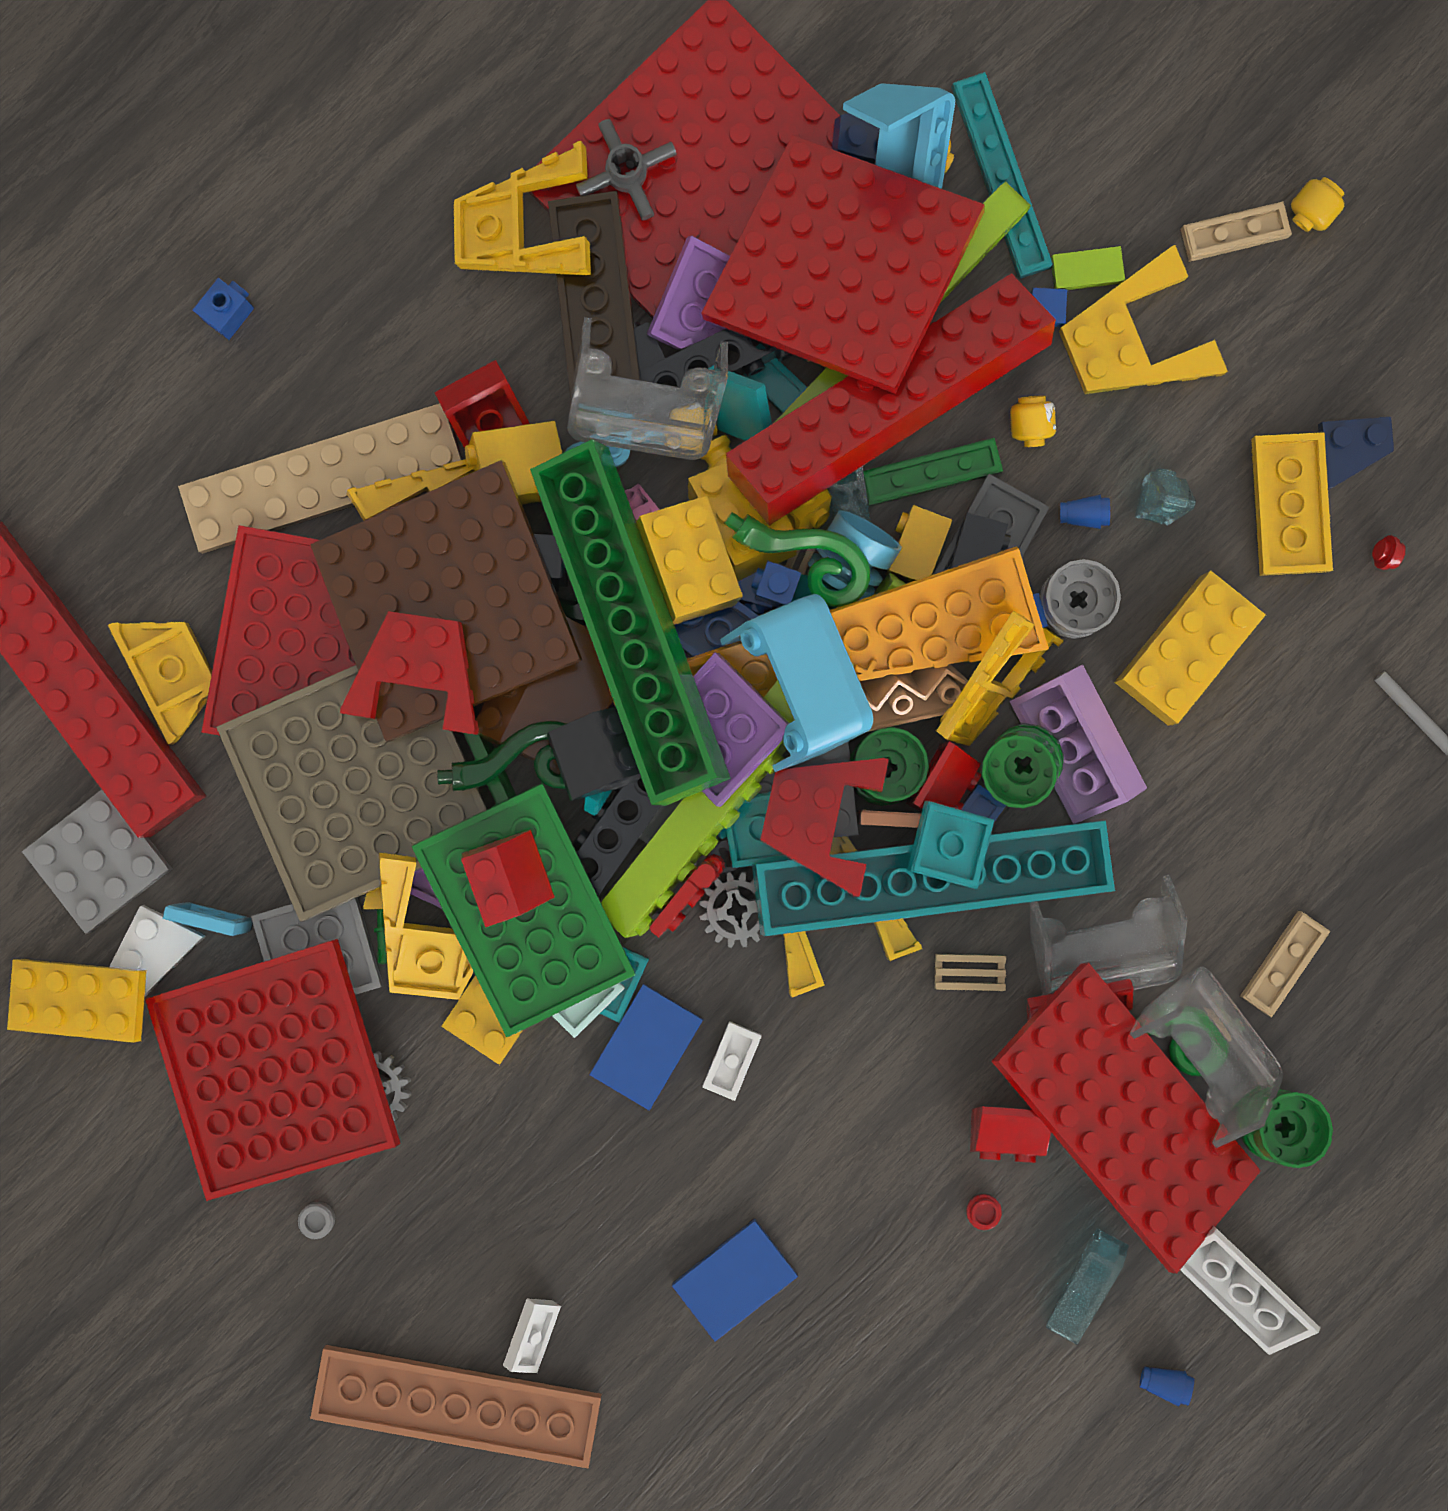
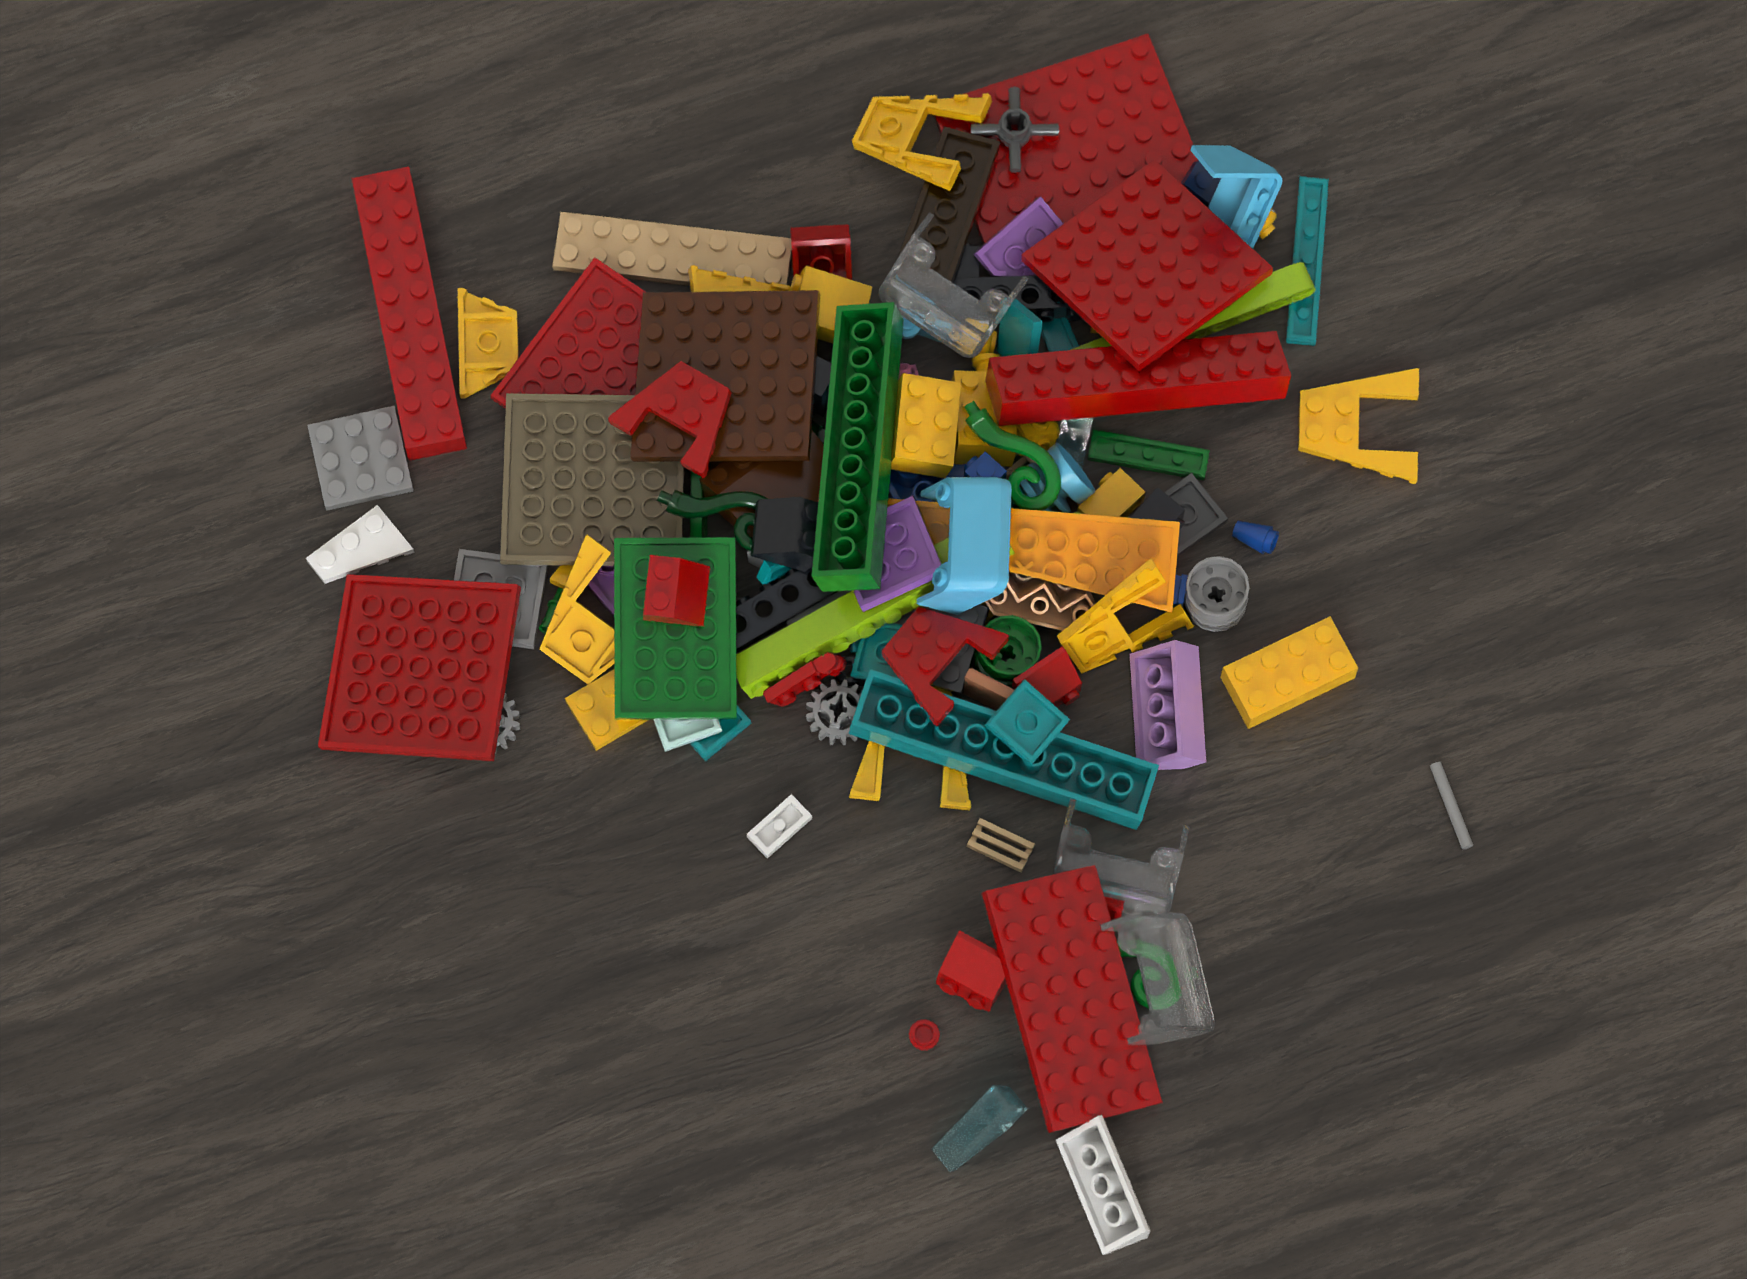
camera: 30 degrees right, 15 degrees down
(76, 1000) = (295, 551): yellow plate -> none
(208, 918) = (428, 532): medium azure tile -> none
(224, 307) = (660, 99): blue brick -> none
(316, 1220) = (393, 803): light grey tile -> none
(456, 1406) = (433, 993): nougat plate -> none
(531, 1335) = (519, 964): white plate -> none
(646, 1046) = (716, 787): blue tile -> none
(734, 1280) = (700, 997): blue tile -> none
(983, 803) = (1077, 725): blue tile -> none
(1017, 784) = (1099, 693): green wheel -> none
(1033, 420) = (1245, 449): yellow head -> none
(1054, 302) = (1301, 371): blue tile -> none
(1088, 268) = (1342, 357): lime tile -> none
(1164, 497) = (1318, 548): clear light blue slope -> none
(1168, 1384) = (1009, 1236): blue cone -> none
(1236, 231) = (1473, 380): tan tile -> none
(1285, 963) = (1257, 952): tan tile -> none
(1292, 504) = (1422, 601): yellow plate -> none
(1303, 1136) = (1207, 1056): green wheel -> none
(1317, 204) = (1544, 386): yellow head -> none
(1355, 445) = (1493, 580): dark blue wing -> none
(1388, 553) = (1482, 671): red plate -> none

